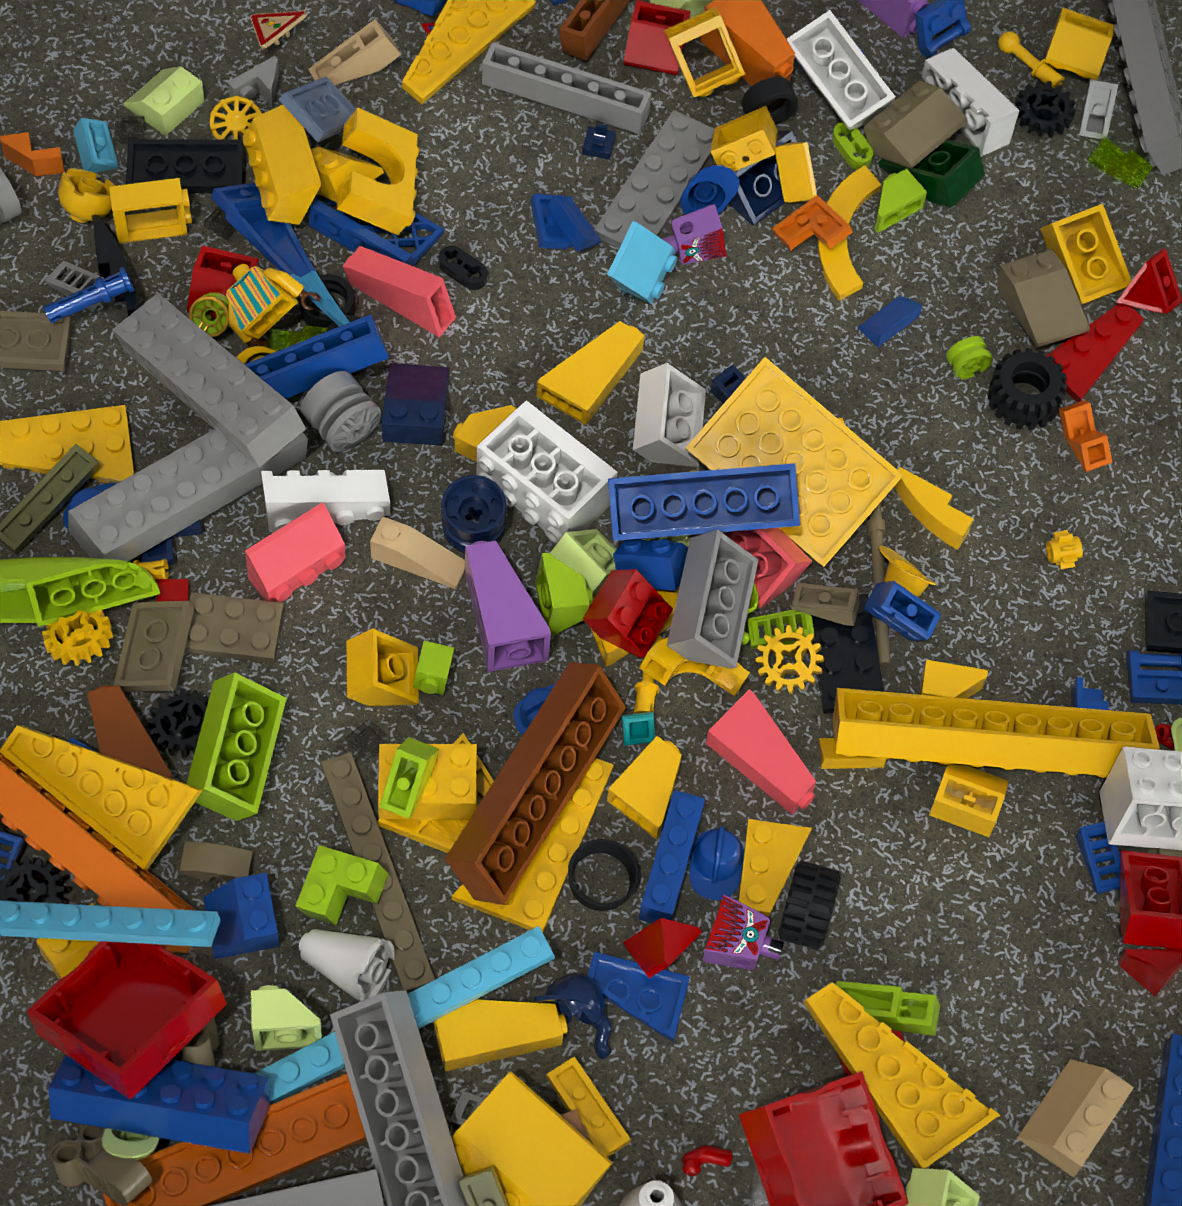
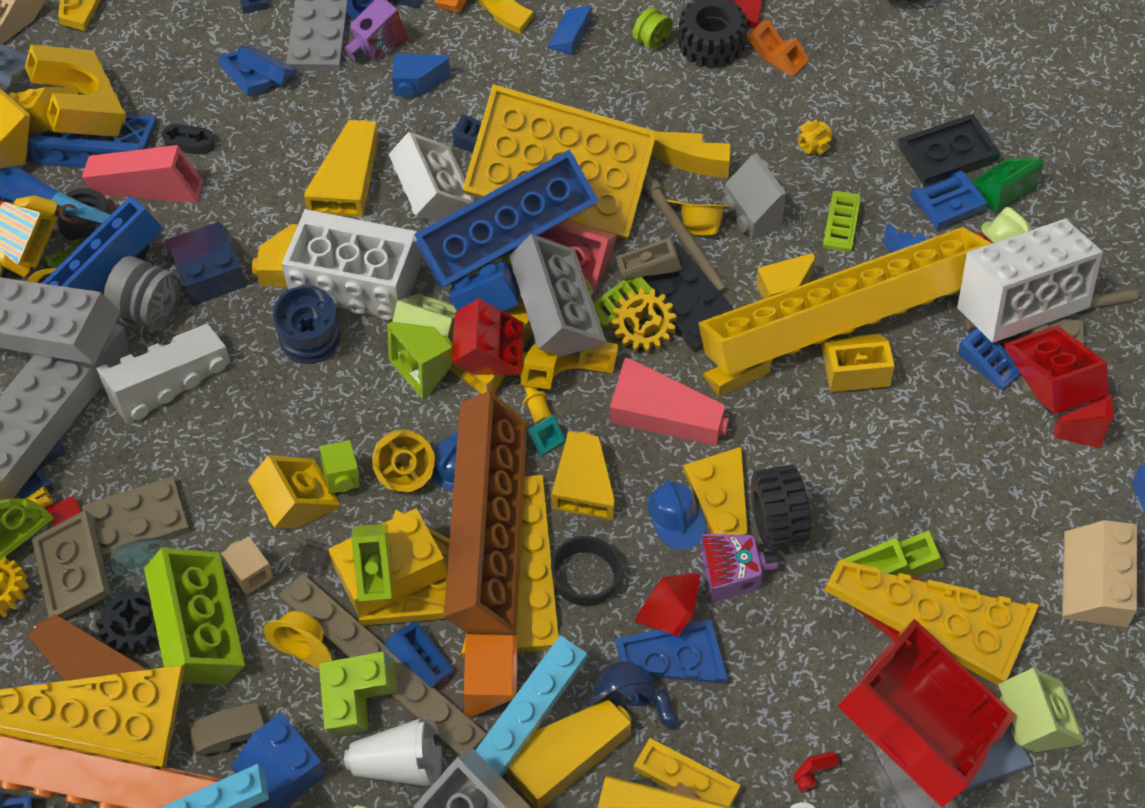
camera: 20 degrees left, 5 degrees down
(216, 666) = (136, 554): none -> clear light blue tile
(295, 555) = (162, 428): coral slope -> none
(306, 721) = (247, 565): none -> tan brick
(319, 809) = (298, 636): none -> yellow piece
(415, 553) = (268, 380): tan slope -> none
(422, 867) = (413, 639): none -> blue slope
(463, 926) = (489, 672): none -> orange slope
(492, 690) = (403, 460): none -> yellow cylinder
(505, 614) = (374, 387): medium lavender slope -> none
(642, 263) = (344, 66): medium azure slope -> none
(672, 857) = (638, 527): blue brick -> none
(714, 300) = (418, 73): none -> blue slope
(902, 611) = (716, 238): blue brick -> none
(964, 588) = (755, 198): none -> light grey slope
(1051, 633) = (842, 204): none -> lime slope

